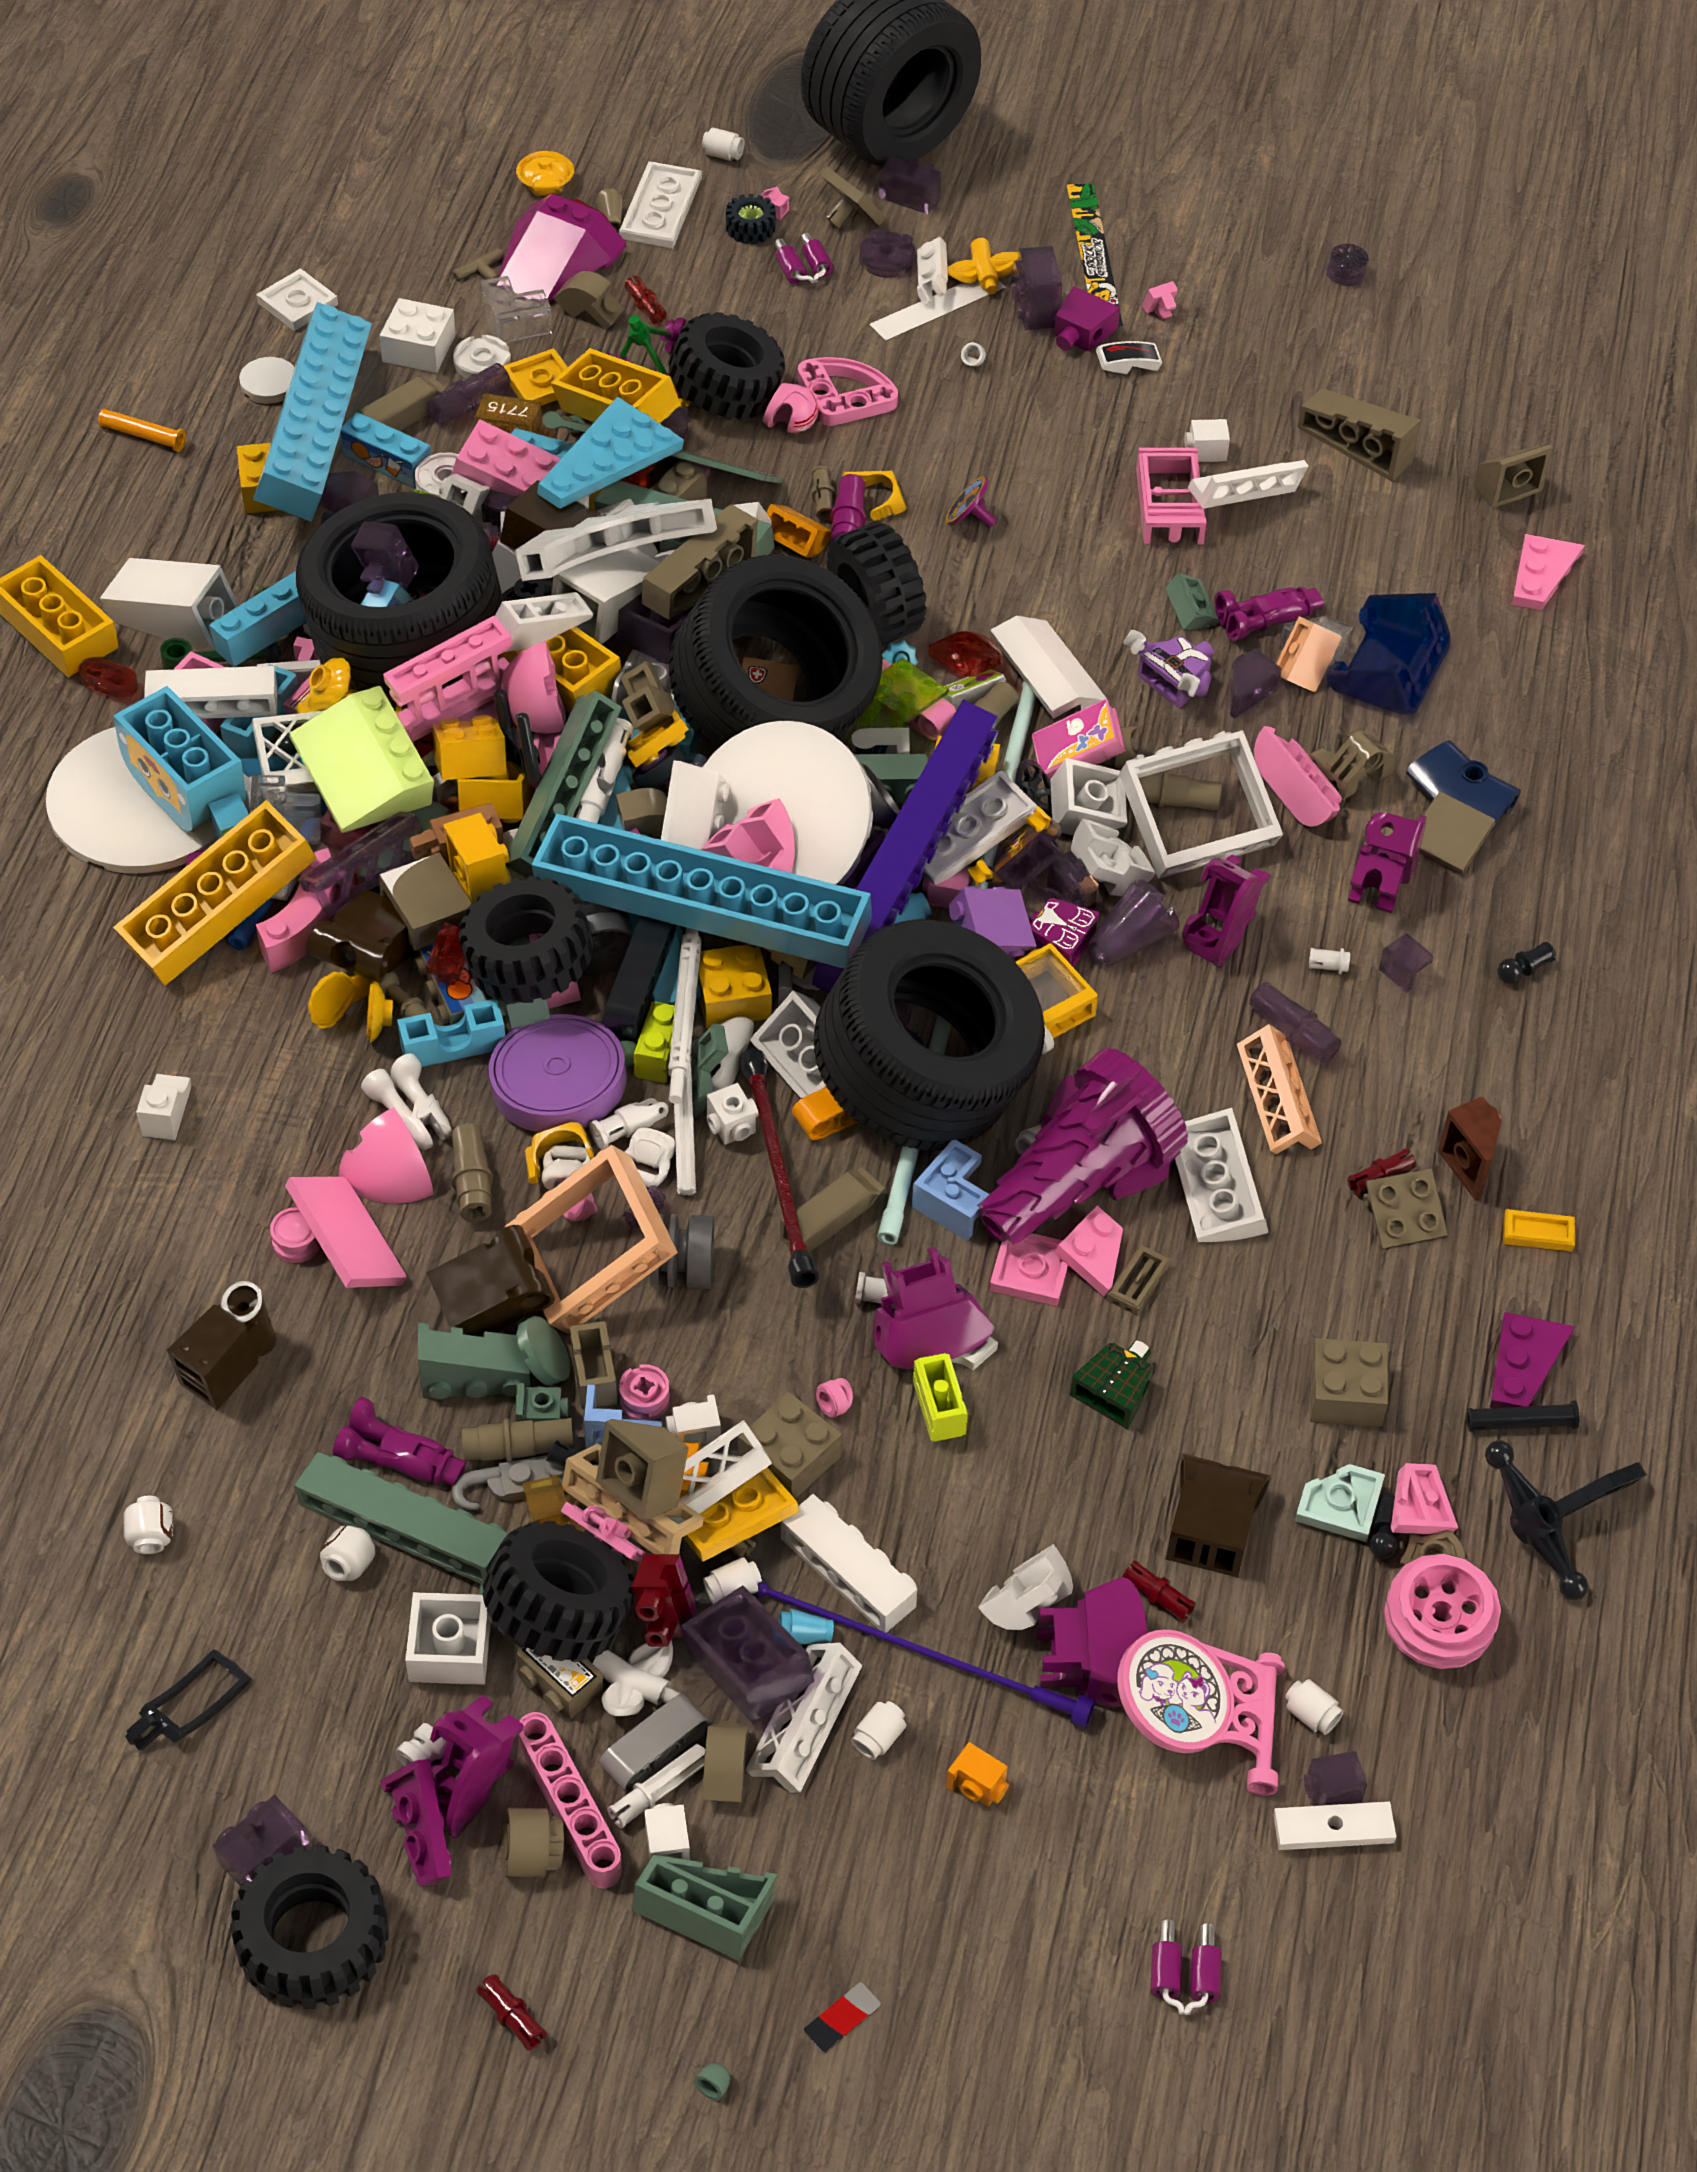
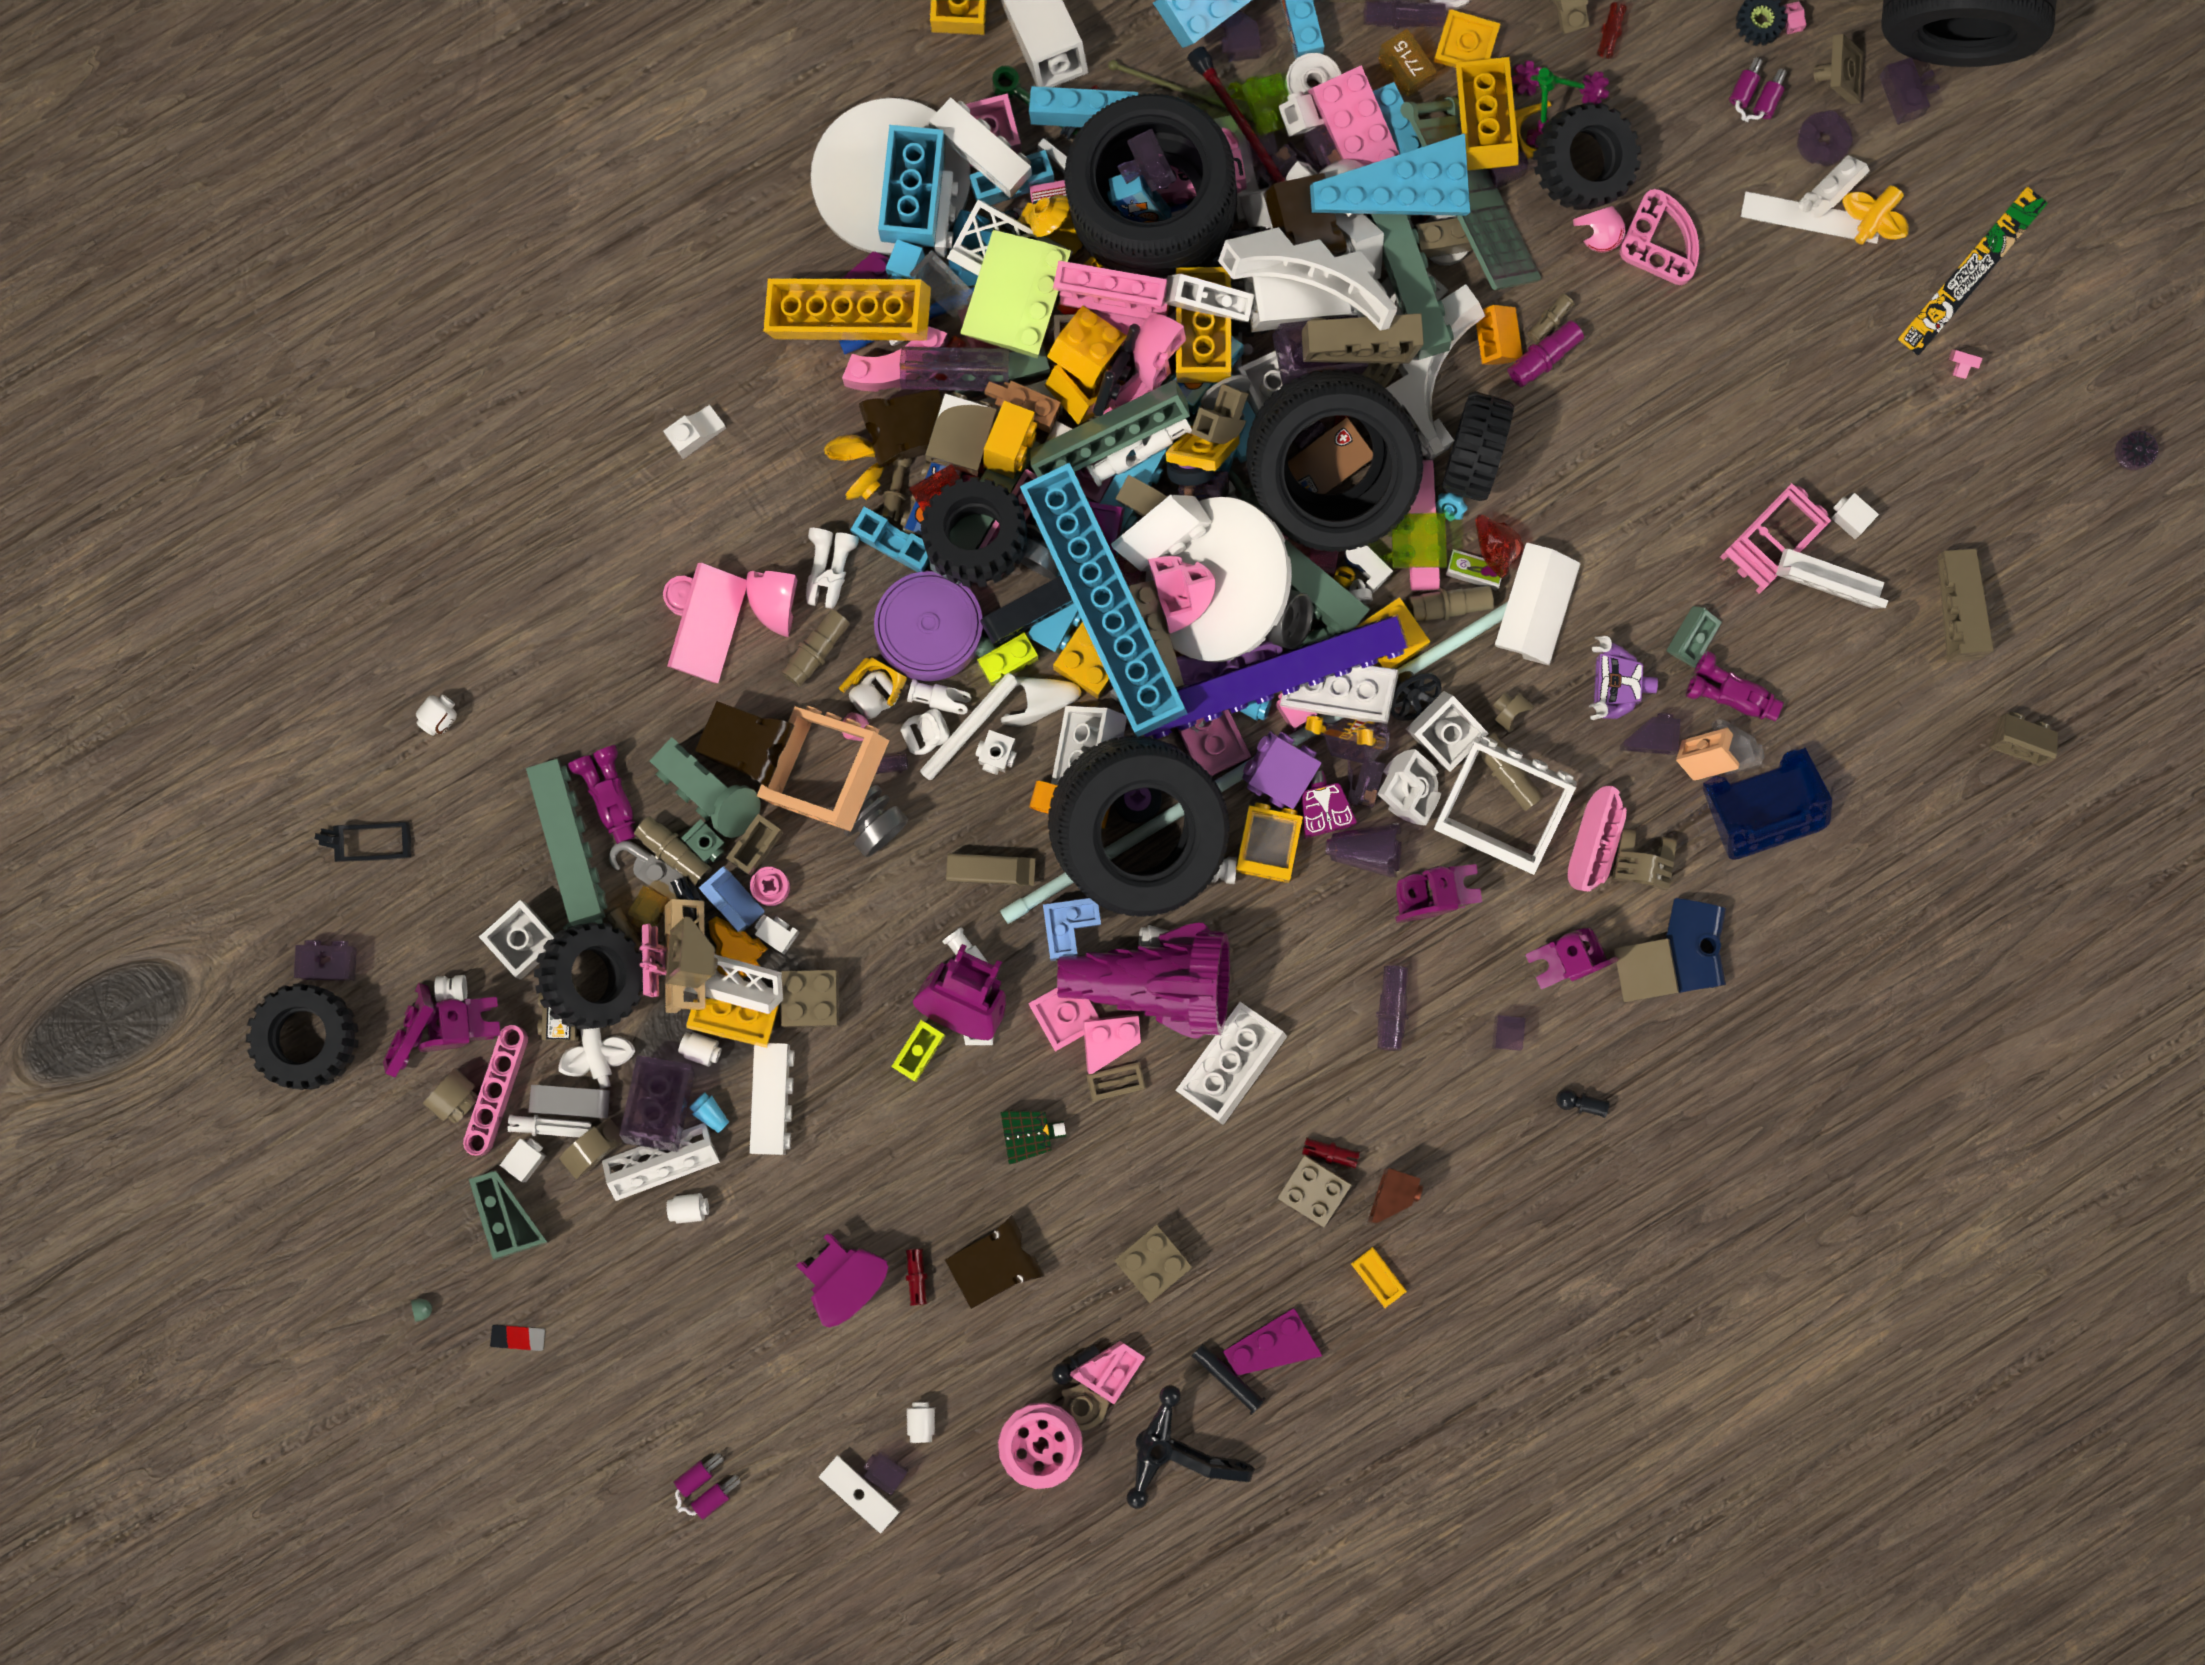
camera: 50 degrees right, 30 degrees up
(108, 677) = (954, 58): clear red plate -> none
(224, 1344) = (569, 642): dark brown piece -> none
(347, 1553) = (521, 833): white head -> none
(511, 2012) = (360, 1176): dark red pin -> none
(662, 1597) = (642, 1028): dark red hips -> none
(684, 1013) = (1025, 666): white axle -> none
(708, 1052) = (1019, 703): sand green tile -> none
(801, 1266) = (921, 899): dark red hose -> none
(834, 1397) = (864, 991): bright pink tile -> none
(895, 503) = (1594, 370): yellow helmet -> none
(971, 361) = (1777, 291): white hinge -> none
(971, 501) = (1631, 421): shield -> none
(978, 1776) = (709, 1286): light orange brick -> none
(1033, 1586) = (840, 1212): white brick -> none
(1037, 287) = (1880, 276): brick -> none
(1080, 1710) = (800, 1300): dark purple piece -> none
(1084, 320) = (1887, 331): magenta torso -> none
(1085, 736) = (1484, 685): piece -> none
(1121, 356) = (1886, 389): slope -> none
(1187, 1700) = (847, 1354): piece -> none
(1289, 1087) = (1337, 1044): light nougat fence -> none
(1329, 960) = (1466, 984): white pin -> none
(1342, 1502) = (1070, 1326): light aqua plate -> none
(1542, 568) = (1957, 829): bright pink wing -> none

